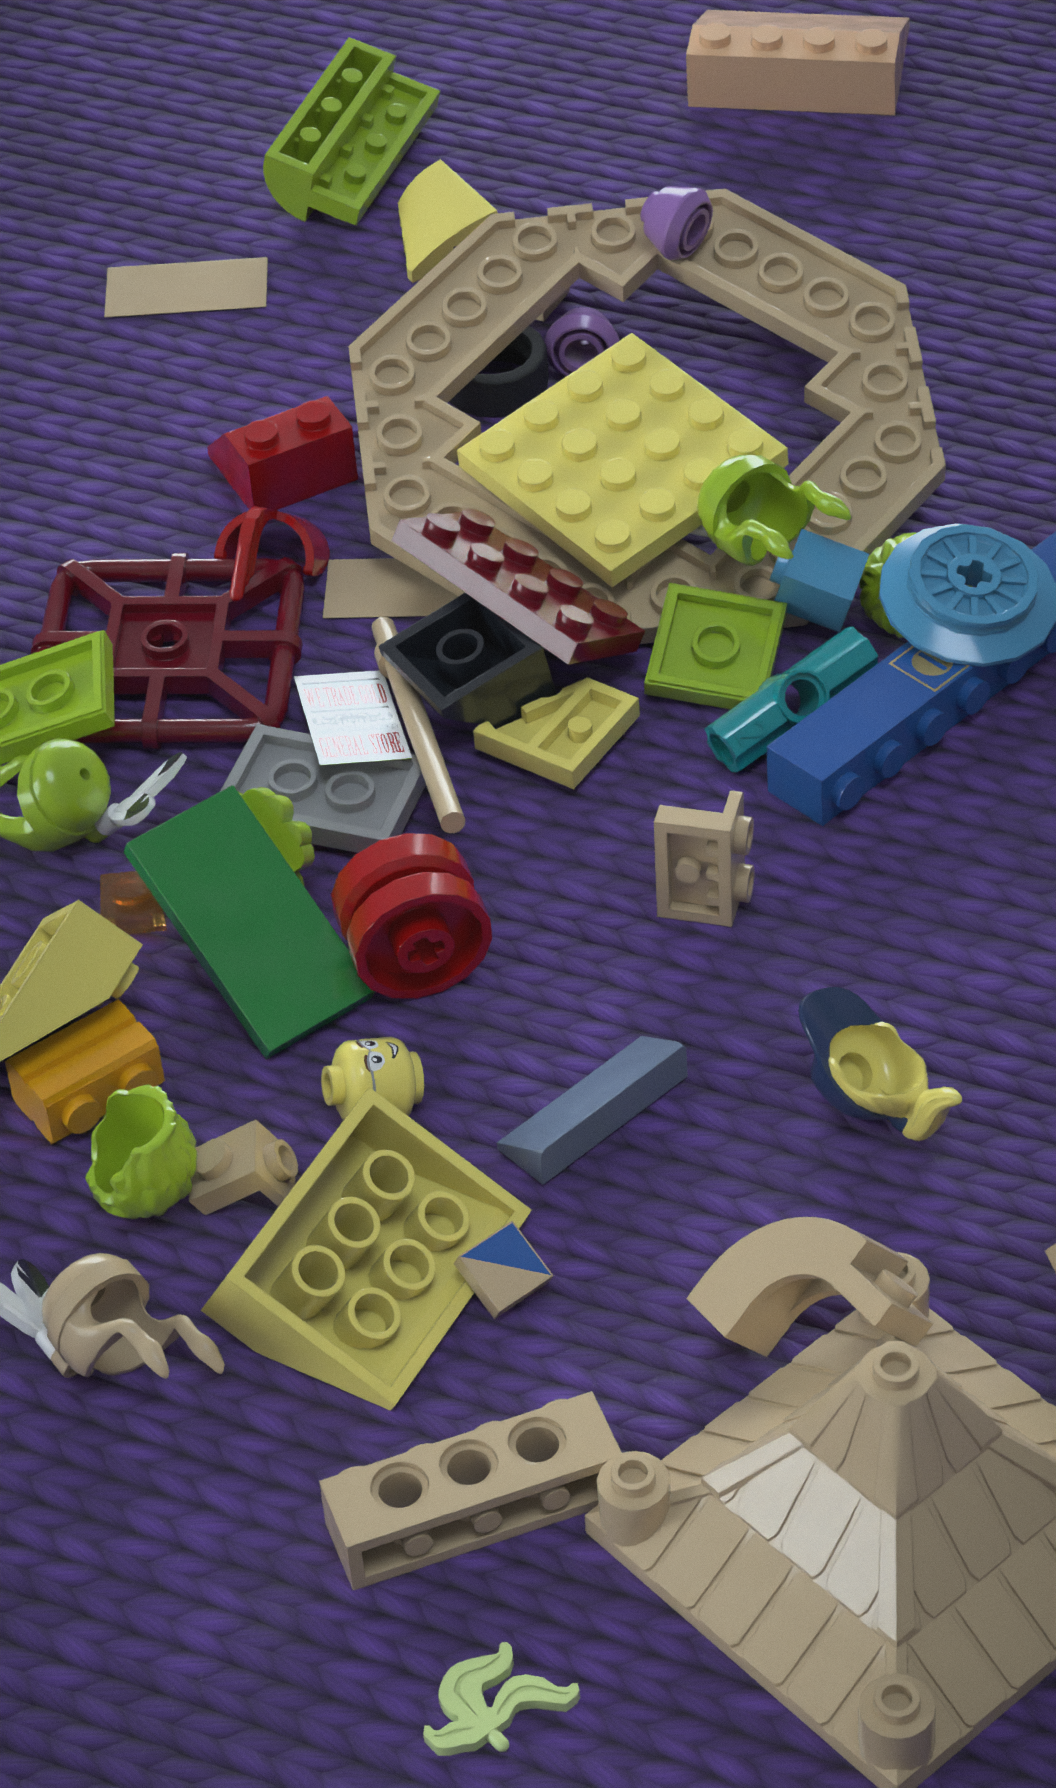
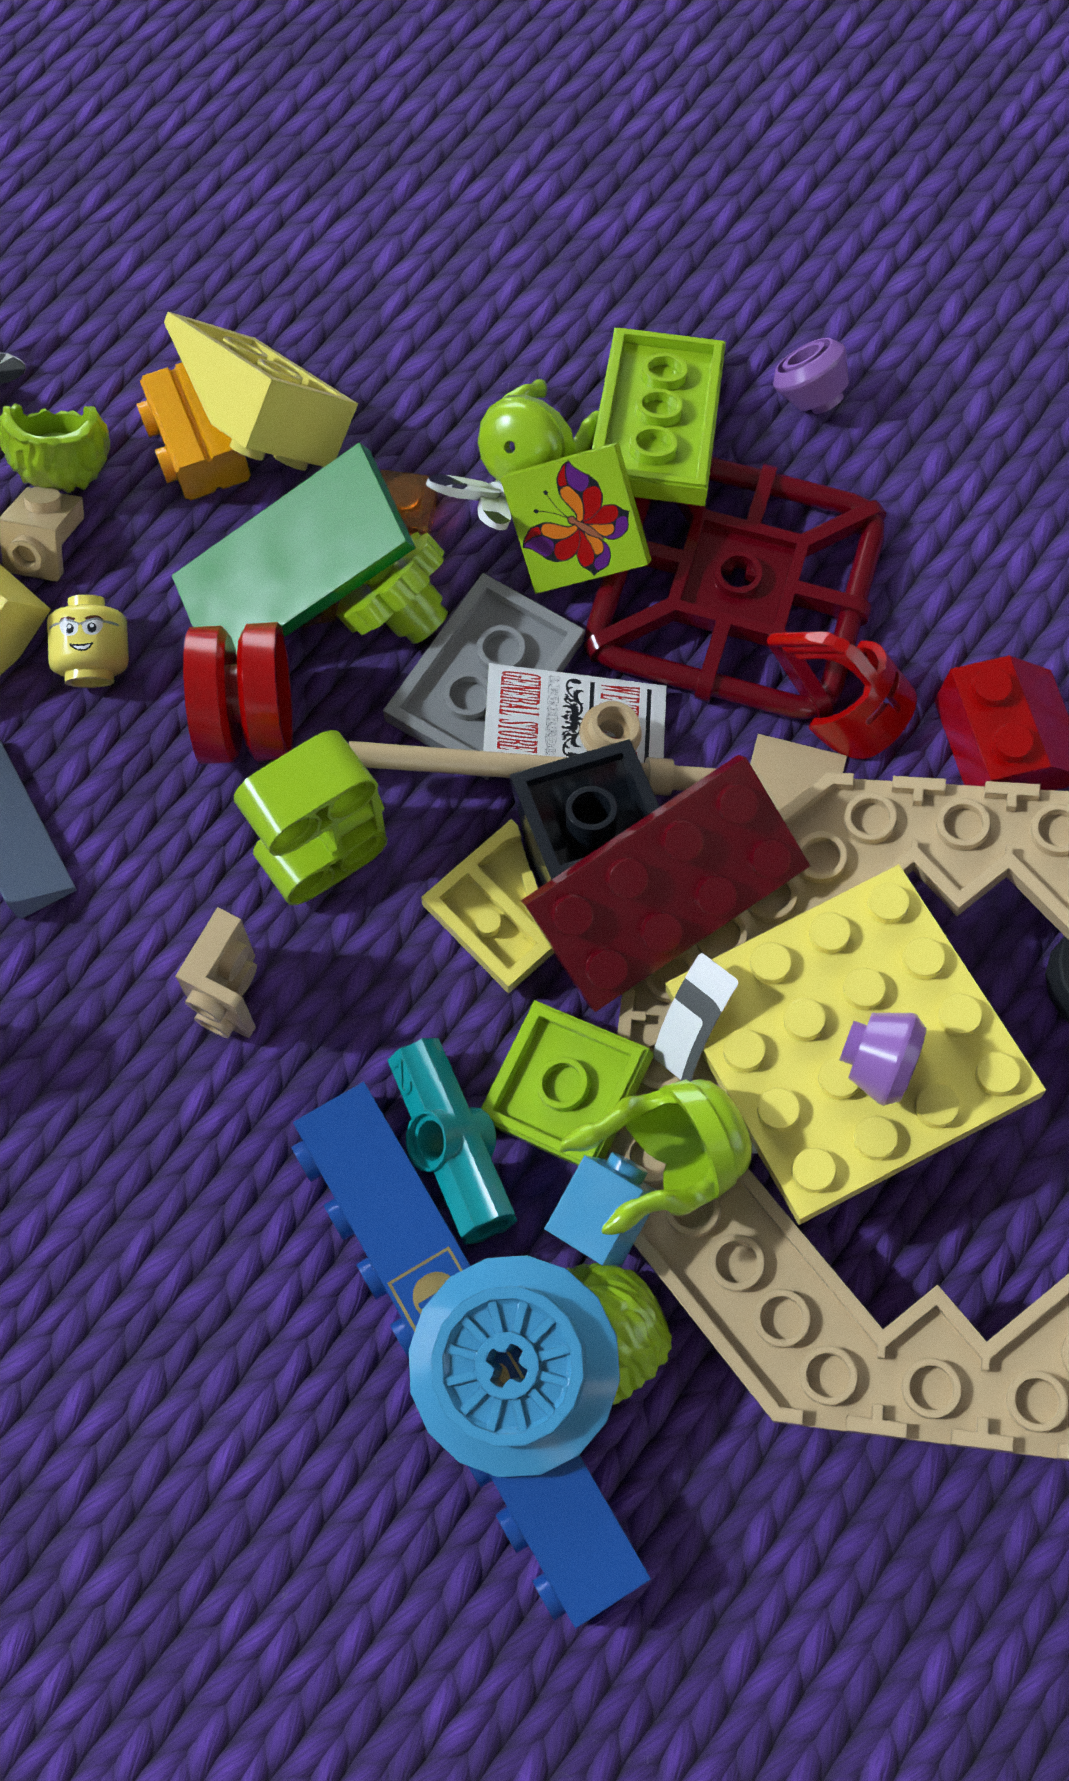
camera: 100 degrees right, 25 degrees up
(145, 721) = (576, 518): none -> lime tile
(364, 678) = (611, 717): none -> tan plate
(517, 788) = (313, 816): none -> lime beam
(638, 543) = (693, 1016): none -> white sticker
(643, 391) = (884, 1054): none -> medium lavender cone

